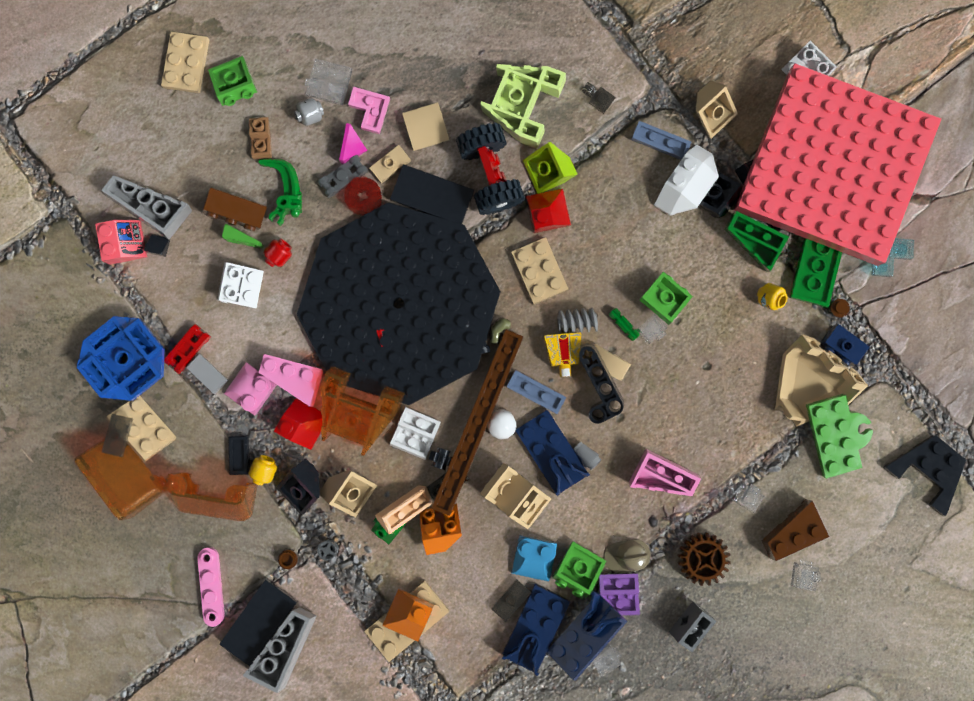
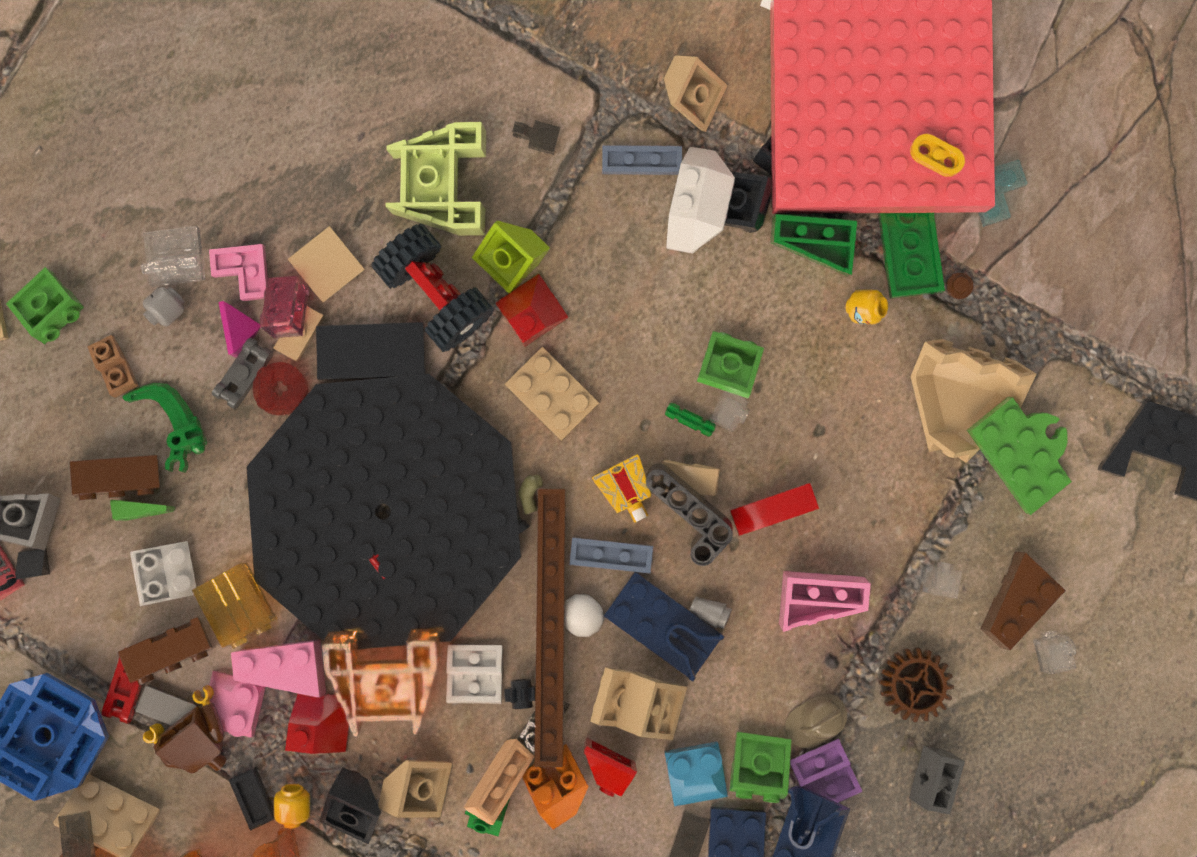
camera: 25 degrees left, 0 degrees up
(216, 400) = (192, 739): none -> reddish brown torso
(222, 336) = (165, 651): none -> reddish brown wedge
(277, 253) = (196, 509): red head -> none
(277, 325) = (235, 606): none -> clear yellow brick
(388, 143) = (284, 307): none -> clear pink brick
(479, 531) = (610, 769): none -> red slope
(577, 320) = (627, 440): light grey piece -> none
(656, 405) = (774, 509): none -> red slope
(844, 345) = (984, 332): dark blue brick -> none
(860, 213) = (937, 153): none -> yellow plate

